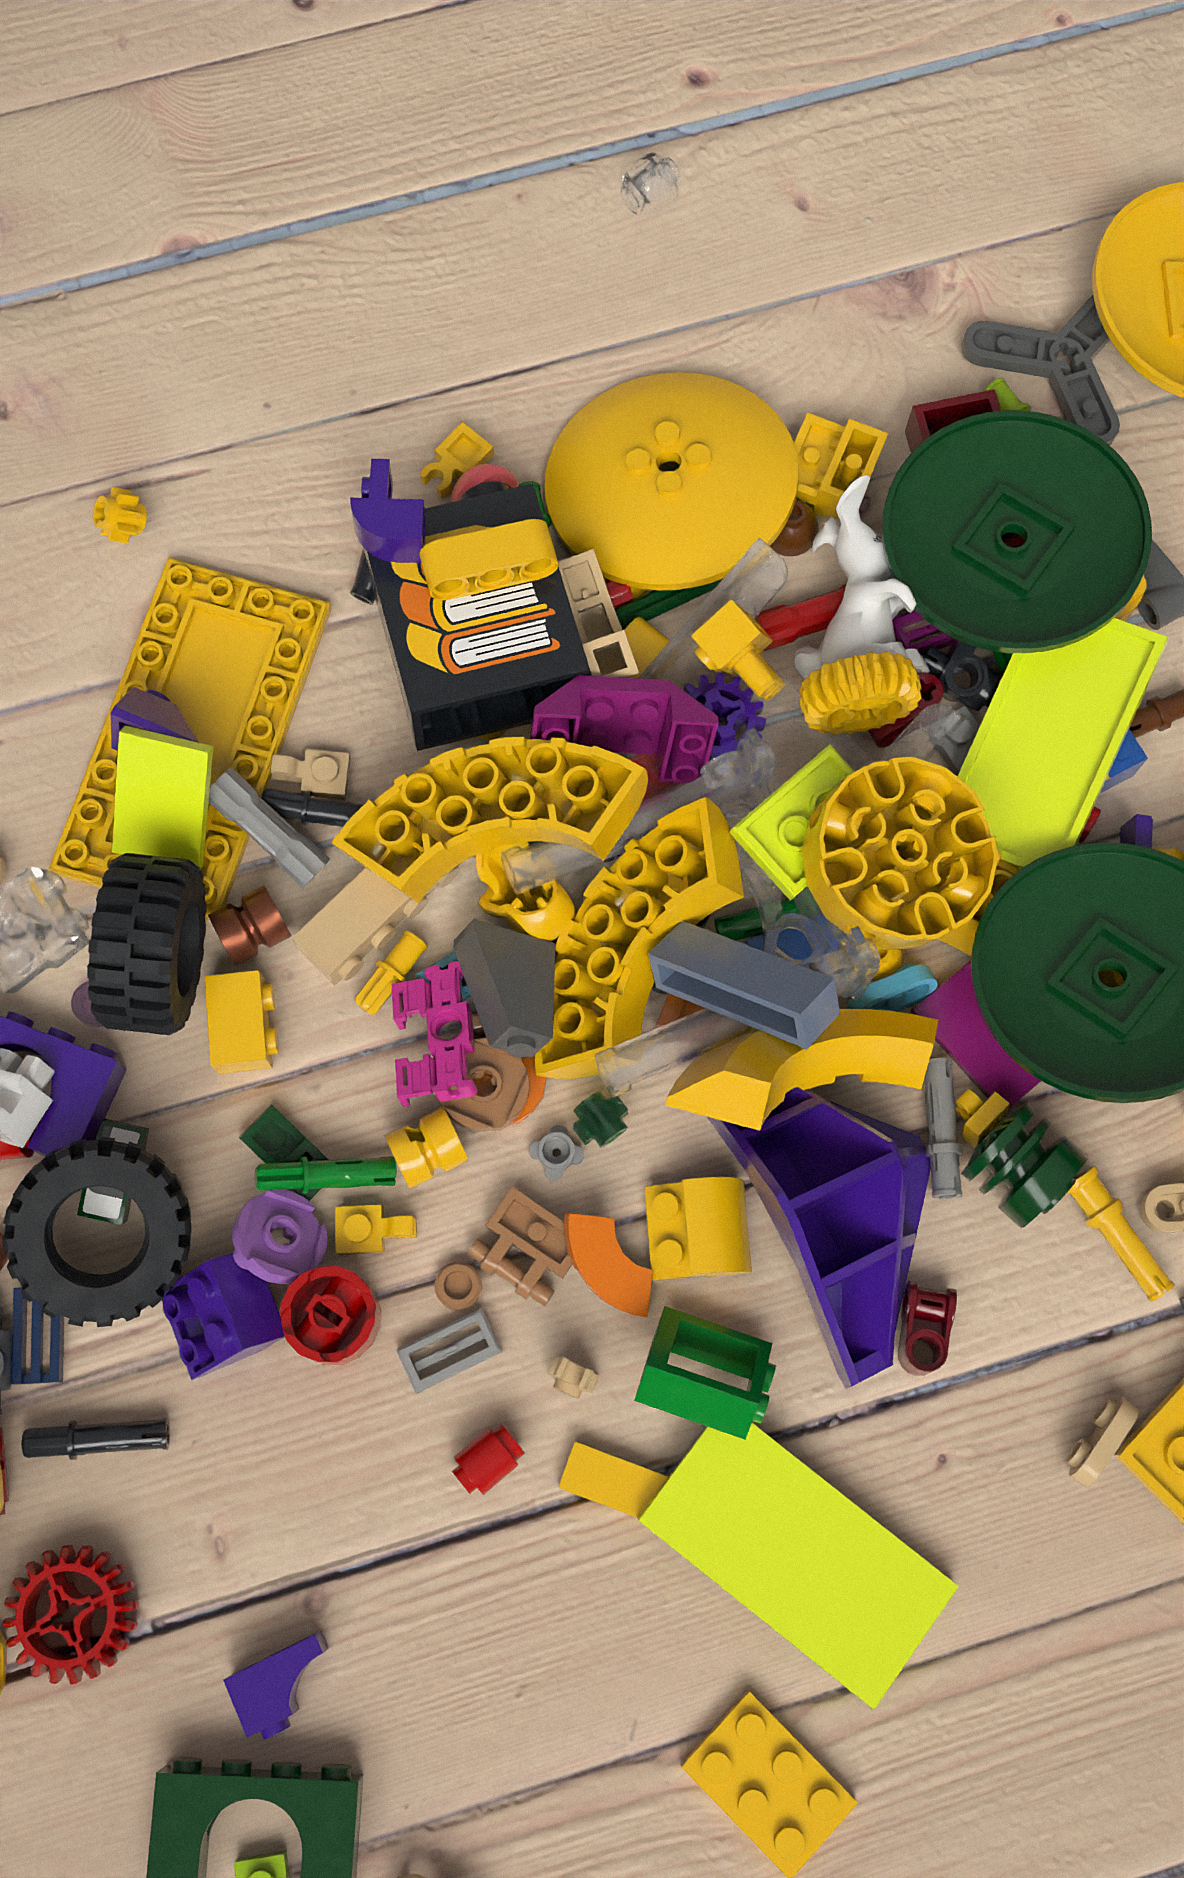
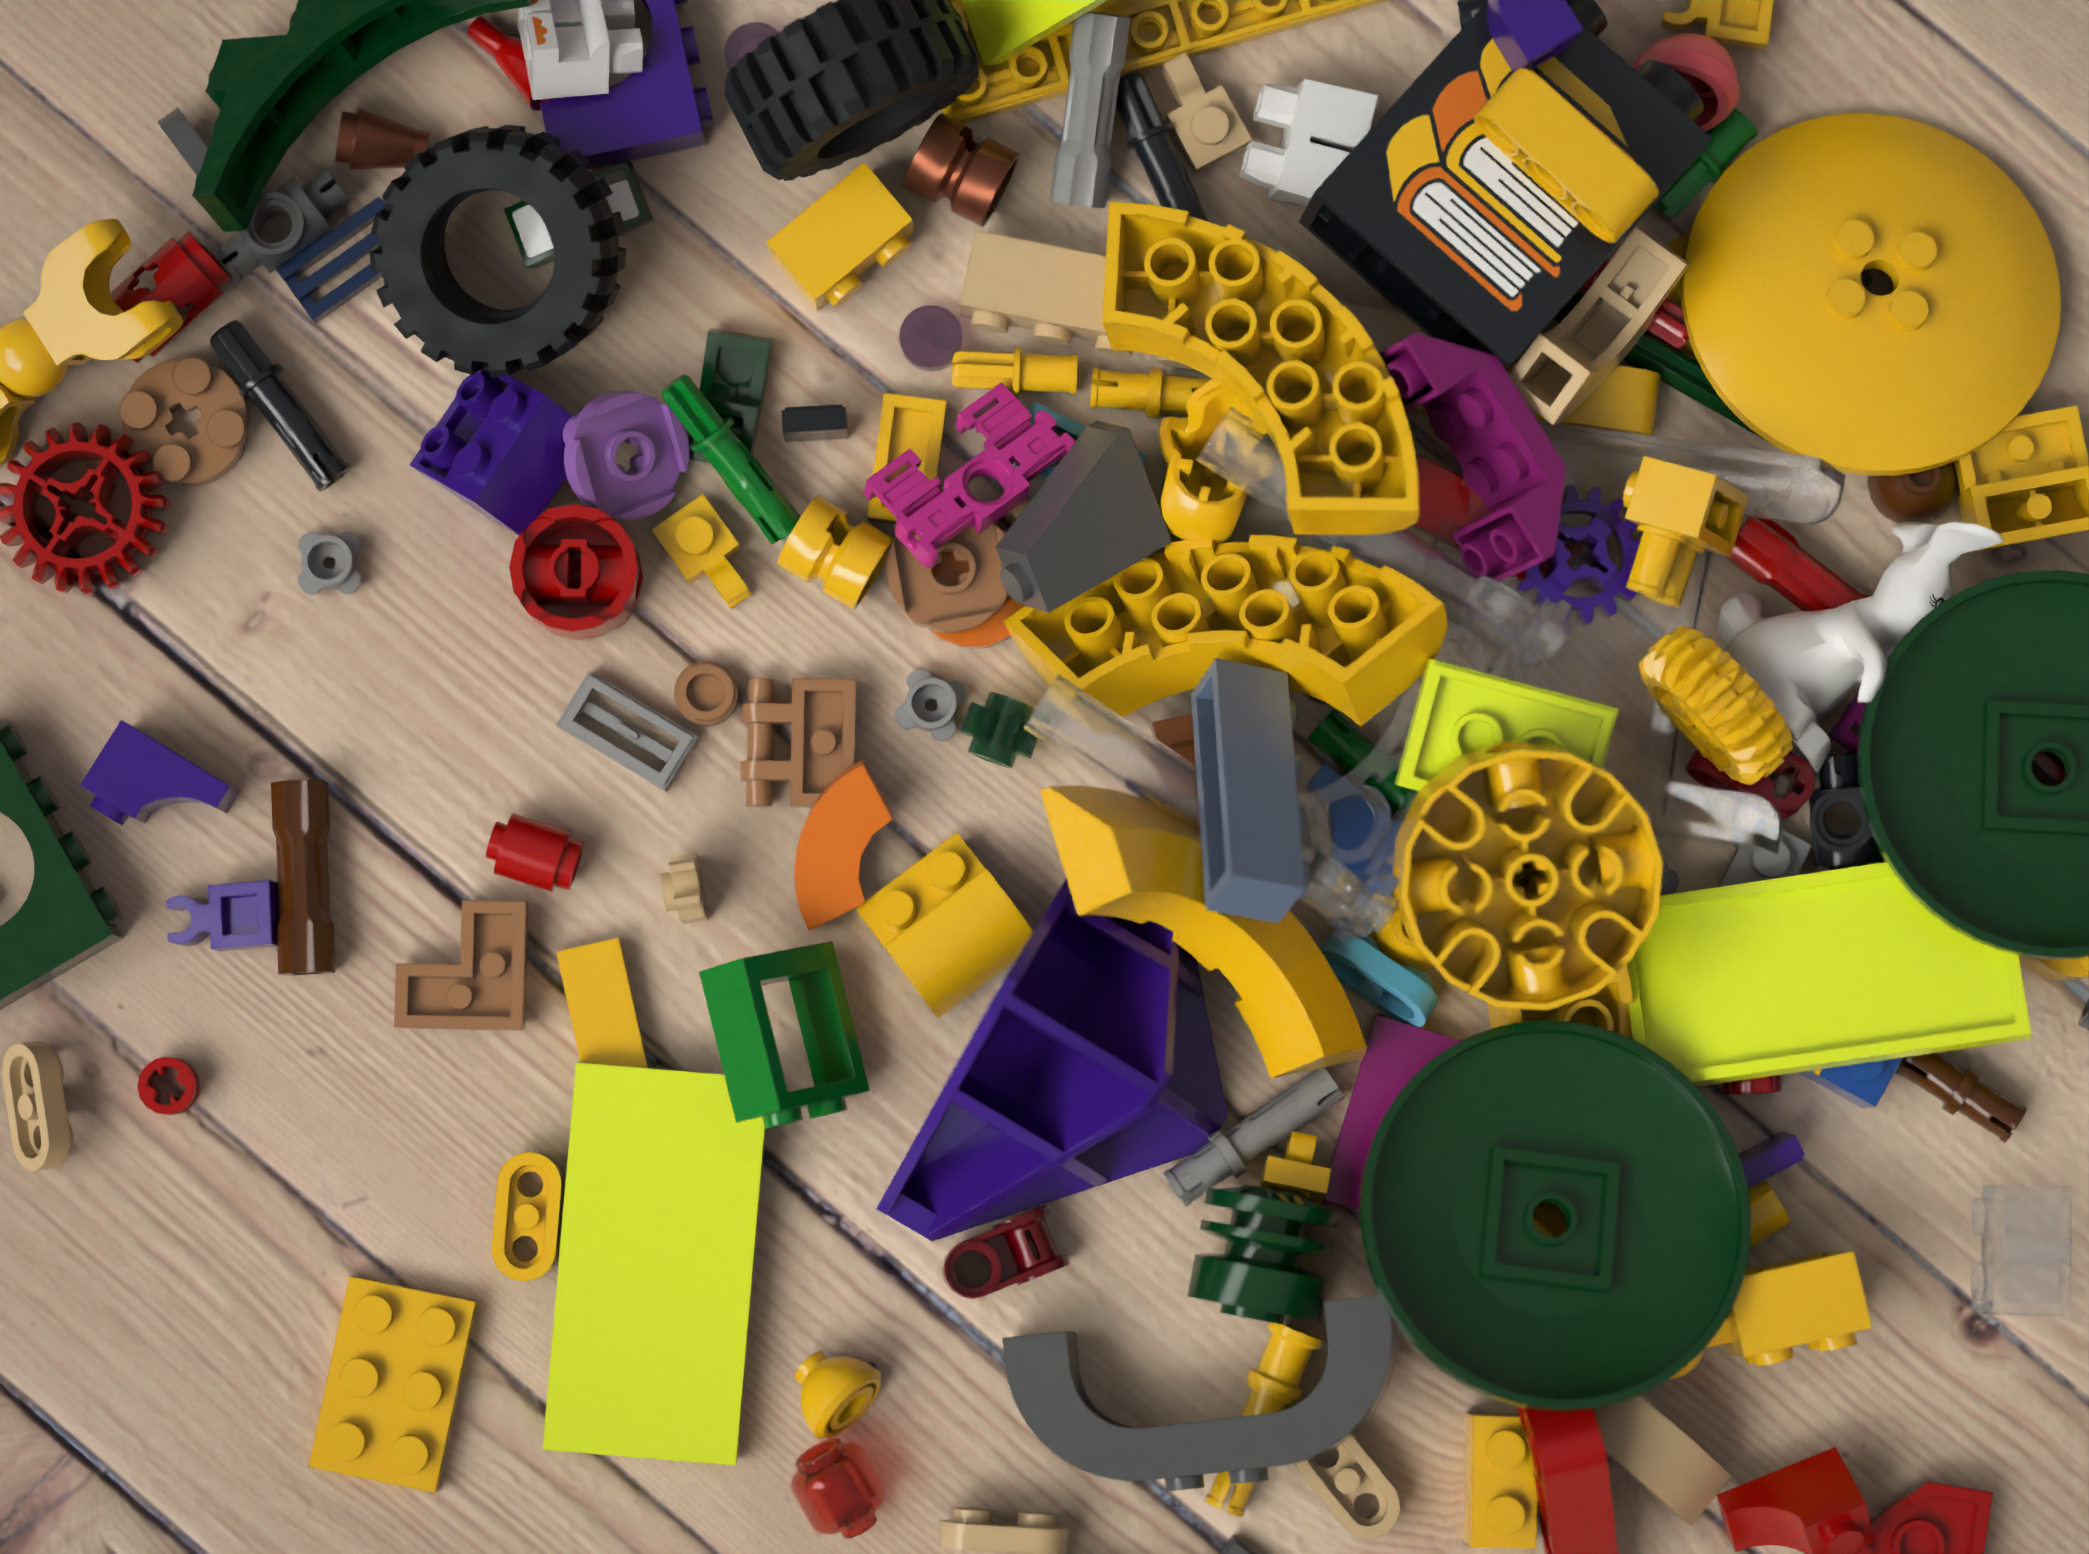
camera: 55 degrees right, 10 degrees up
(43, 1487) = (192, 385): none -> medium nougat plate
(203, 1476) = (316, 550): none -> light grey plate
(335, 1010) = (930, 337): none -> clear purple tile
(339, 1110) = (814, 423): none -> black tile
(376, 714) = (1319, 132): none -> white hips
(377, 1060) = (904, 425): none -> yellow tile
(399, 1688) = (236, 916): none -> dark purple plate
(404, 1624) = (301, 835): none -> reddish brown axle
(455, 905) = (1143, 391): none -> yellow pin
(477, 1825) = (151, 1095): none -> red bush
(552, 1553) = (485, 987): none -> medium nougat plate
(715, 1618) = (527, 1216): none -> yellow plate
(948, 1490) = (835, 1392): none -> yellow brick
(1012, 1528) = (837, 1488): none -> clear red head
(1133, 1259) = (1056, 1407): none -> dark grey arch

